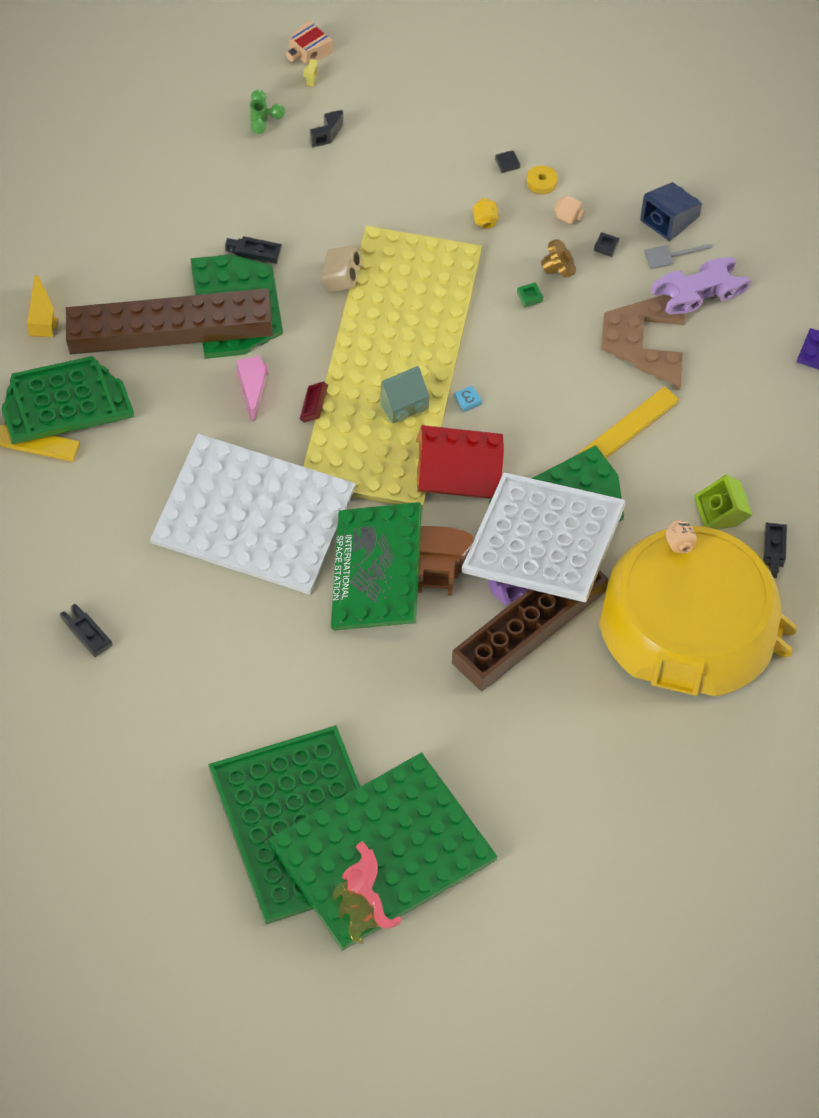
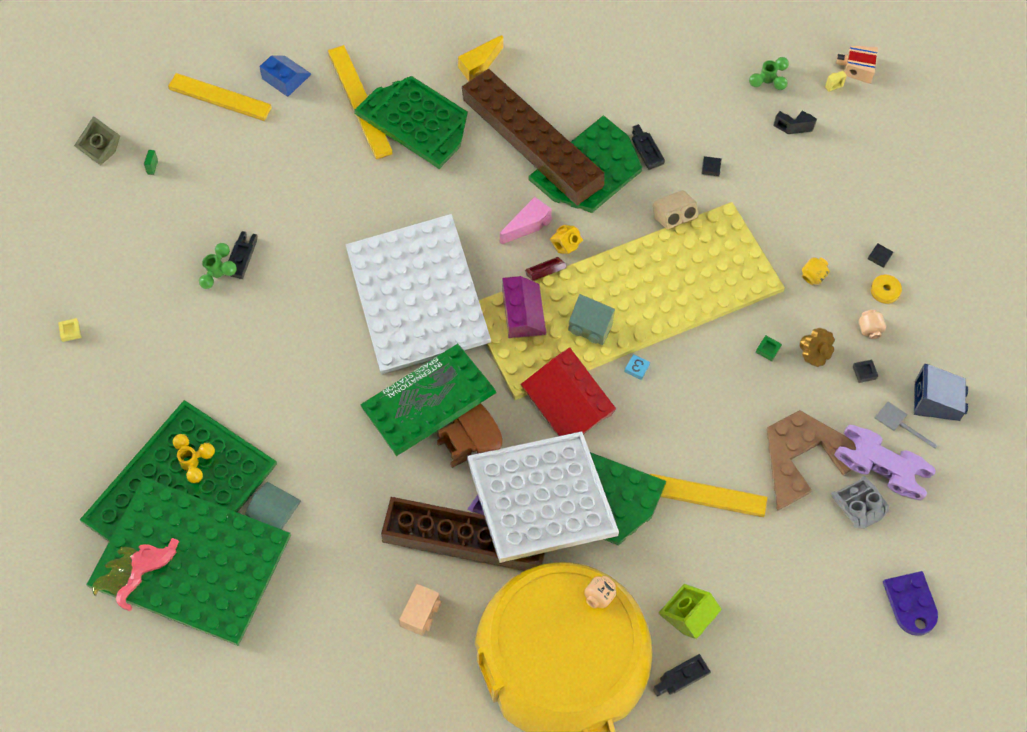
camera: 55 degrees right, 5 degrees up
(44, 821) = (69, 330): none -> light yellow plate
(98, 645) = (216, 267): none -> bright green piece
(283, 772) = (205, 451): none -> yellow piece
(299, 366) = (566, 239): none -> yellow brick
(315, 216) = (711, 166): none -> black tile
(342, 441) = (523, 307): none -> magenta slope
(376, 756) = (272, 506): none -> sand green slope
(571, 698) = (420, 609): none -> light nougat brick
(721, 326) = (861, 503): none -> light grey slope

